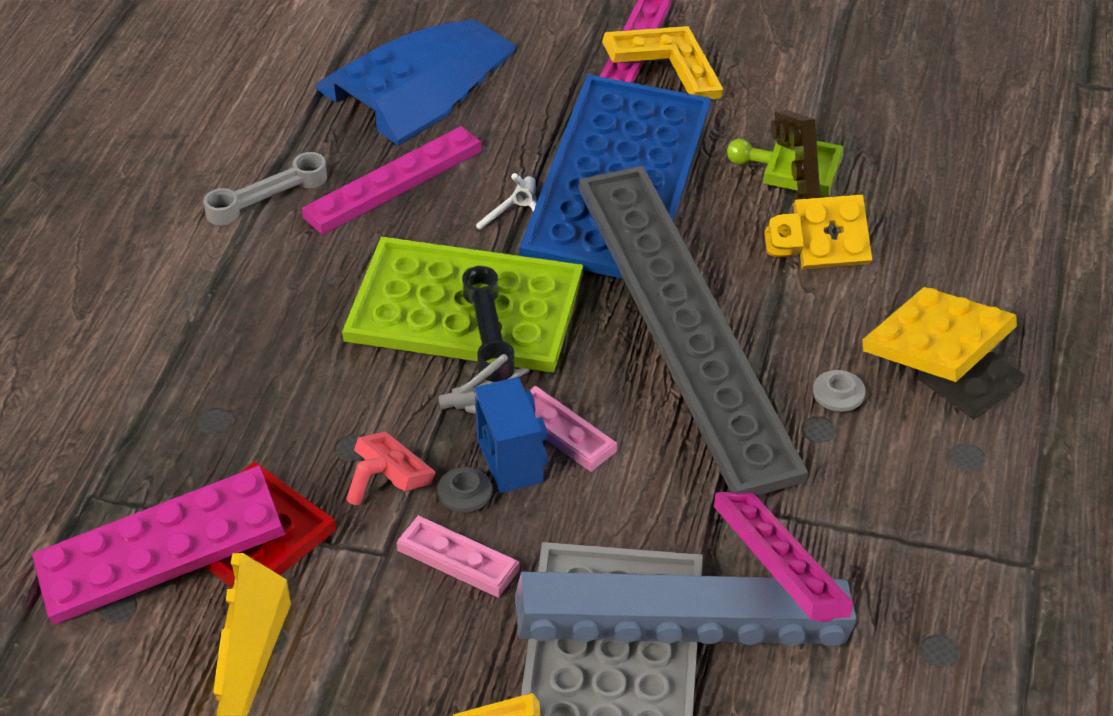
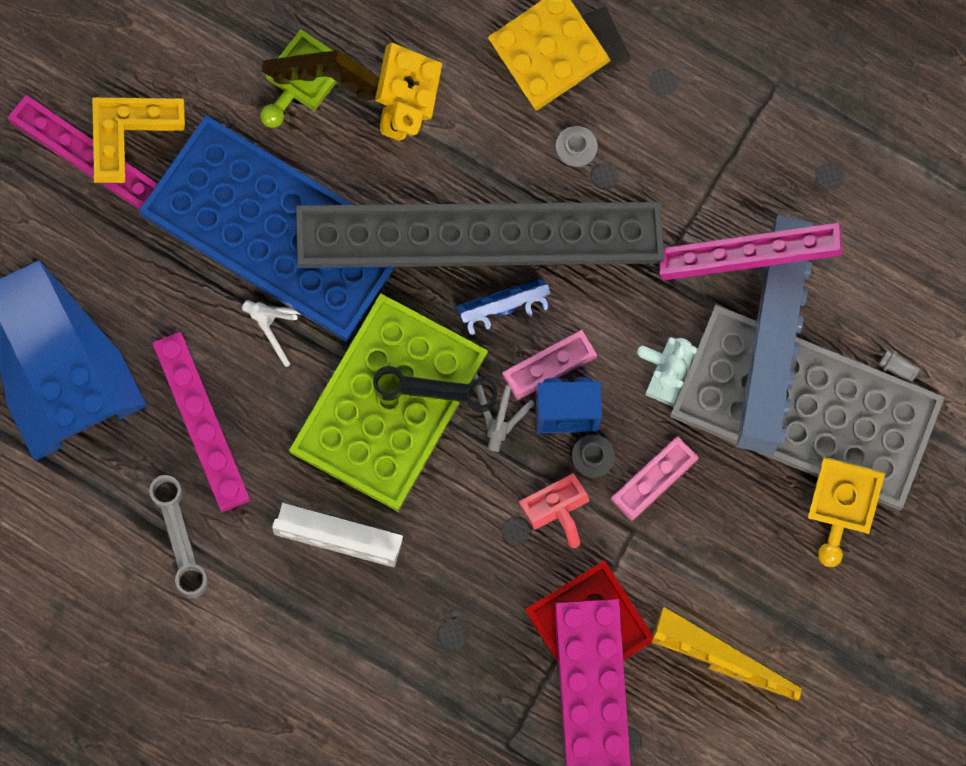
camera: 80 degrees left, 30 degrees up
(299, 299) = (338, 535): none -> white fence
(600, 520) = (670, 370): none -> light aqua piece
(616, 366) = (503, 303): none -> plate

